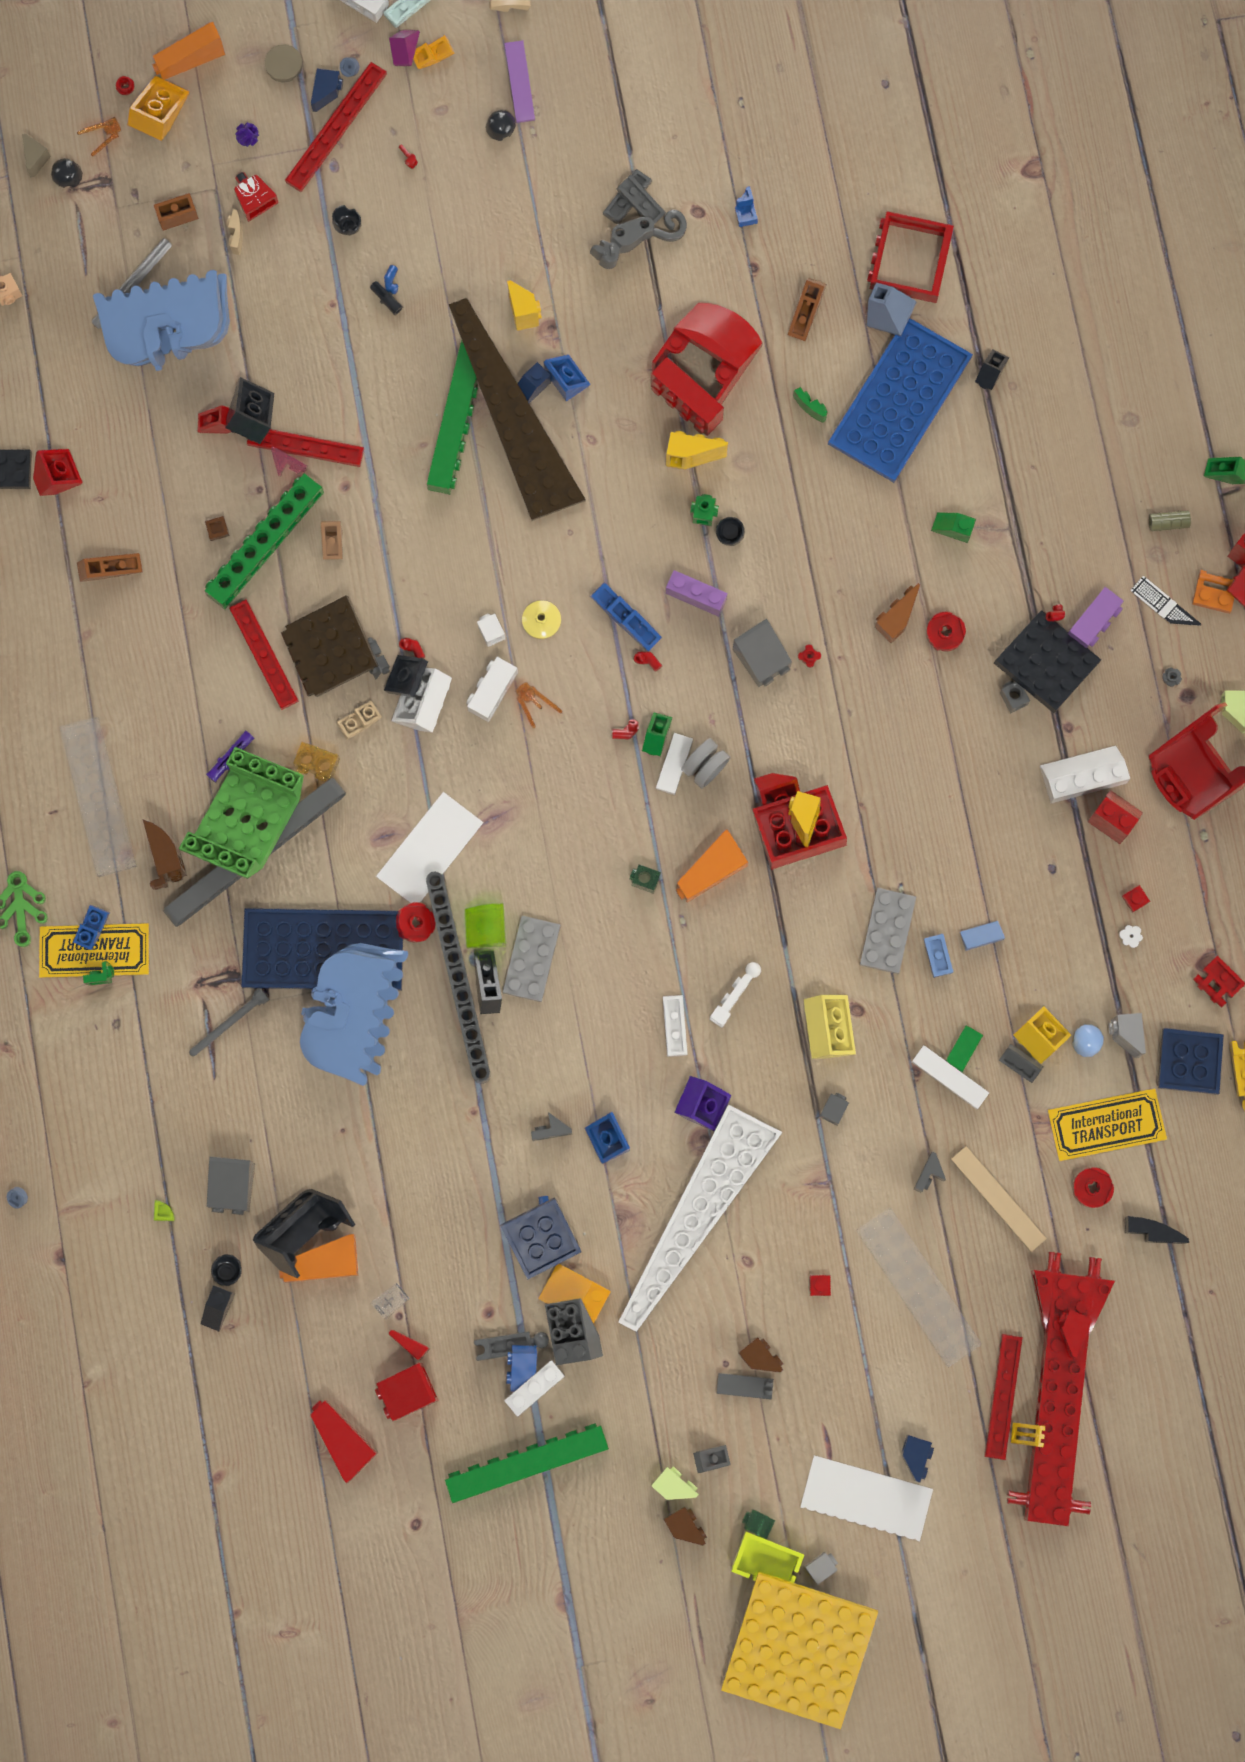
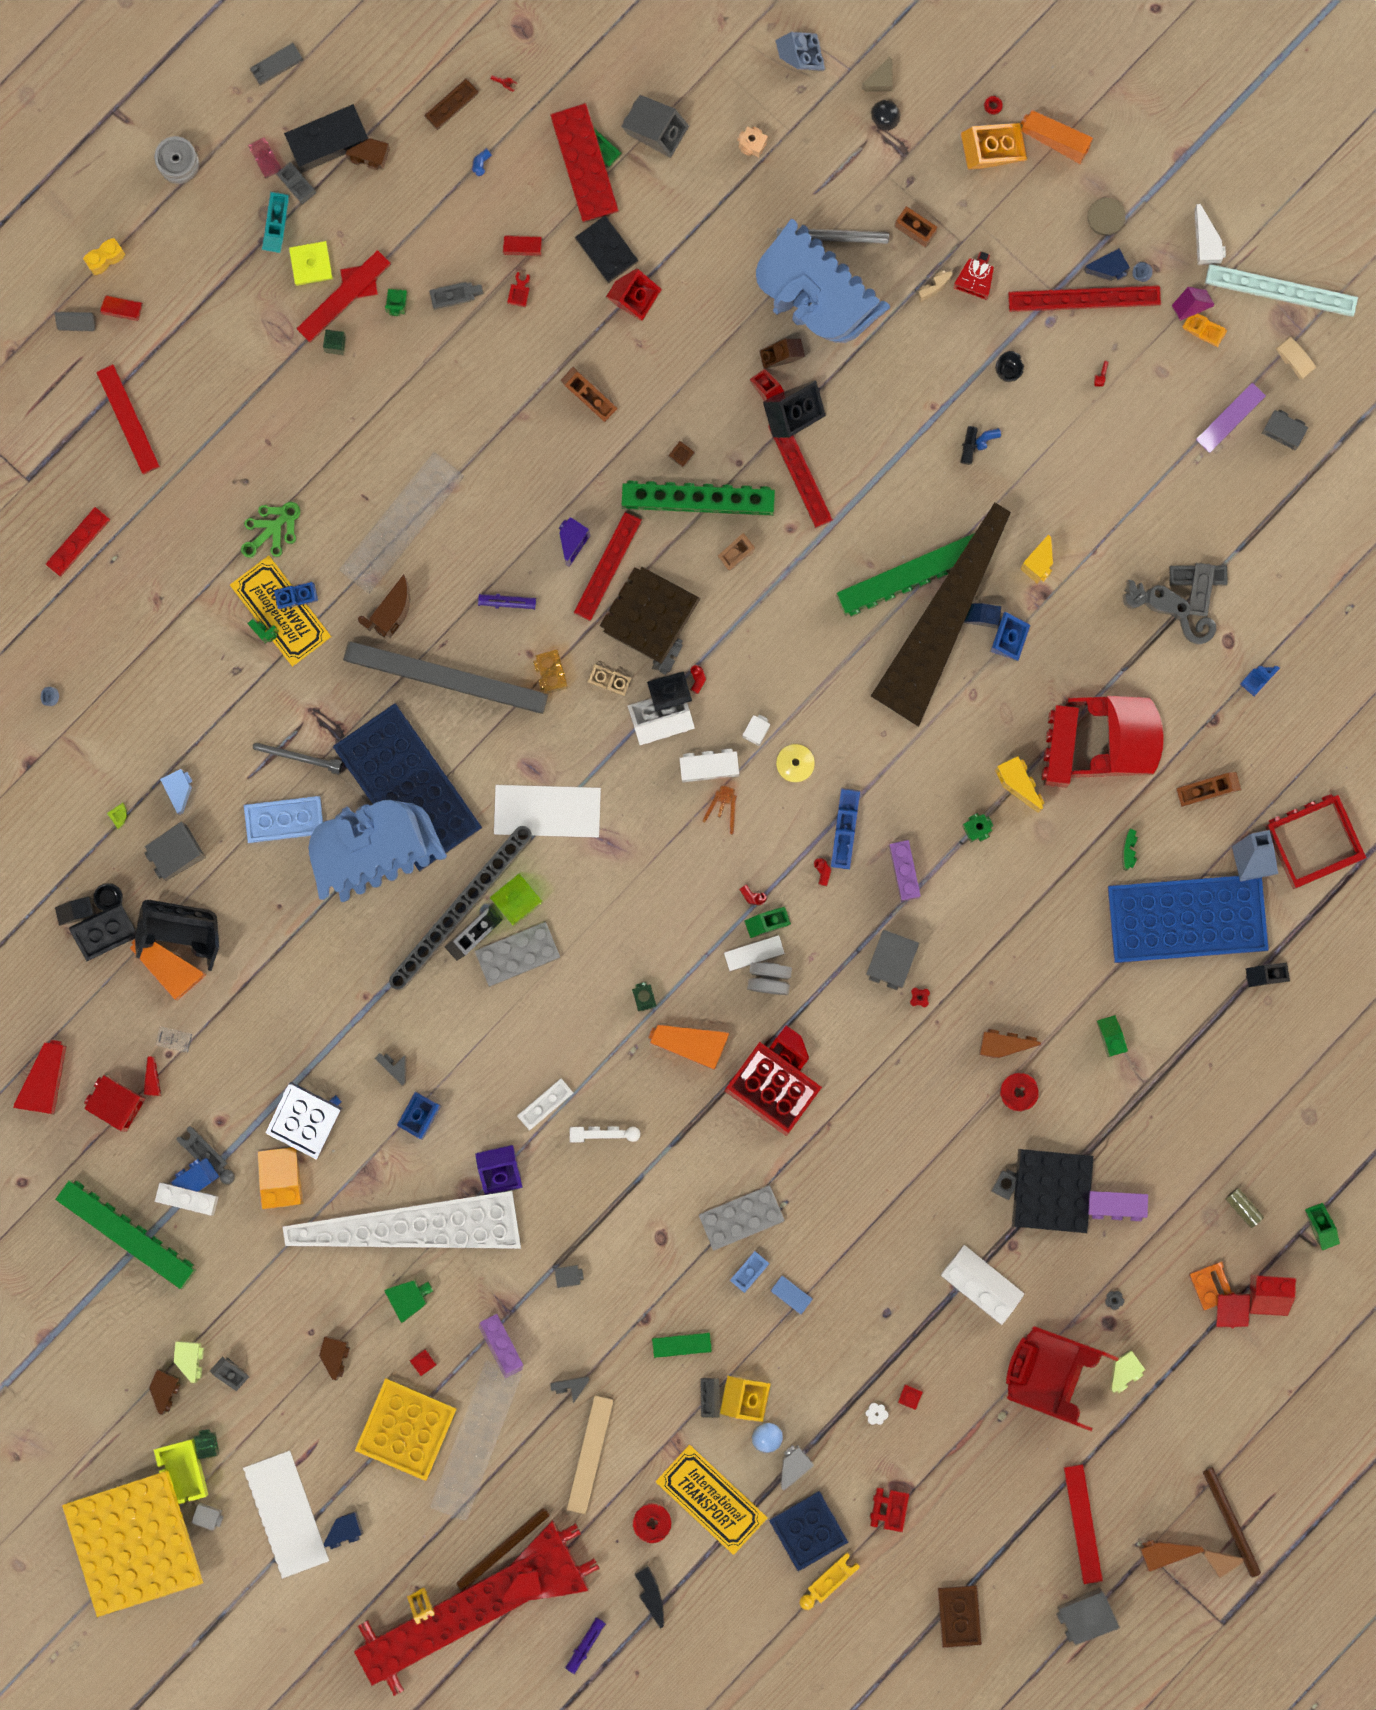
camera: 60 degrees right, 5 degrees up
(109, 126) = (949, 118): clear orange plant -> none
(178, 1143) = (178, 789): none -> light blue slope
(196, 389) = (782, 353): none -> reddish brown slope
(218, 663) = (573, 538): none -> dark purple slope
(247, 134) = (1023, 233): dark purple gear -> none
(253, 789) = (494, 646): bright green slope -> none
(253, 1295) = (103, 932): none -> black plate
(271, 1074) = (282, 819): none -> light blue tile
(282, 459) = (775, 463): clear pink slope -> none
(407, 929) = (469, 839): red plate -> none
(500, 125) = (1183, 429): black hair -> none
(561, 48) = (1285, 429): none -> dark grey brick
(572, 1332) = (247, 1198): dark grey slope -> none
(730, 531) = (975, 861): black hair -> none
(745, 1386) = (304, 1359): dark grey hinge -> none
(756, 1258) = (408, 1298): none -> green torso
(804, 814) = (780, 1087): yellow slope -> none
(829, 1026) = (630, 1226): light yellow slope -> none
(854, 1207) = (501, 1346): none -> medium lavender brick
(867, 1340) = (405, 1429): none -> yellow plate
(950, 1077) = (658, 1350): white tile -> none
(1003, 1397) = (438, 1566): red tile -> none
(1027, 1331) = (503, 1549): none -> reddish brown axle
(1057, 613) = (1098, 1172): red arm -> none
(1115, 817) = (965, 1335): red slope -> none
(1158, 1318) = (585, 1645): none -> dark purple pin
(1162, 603) = (1171, 1250): sticker -> none

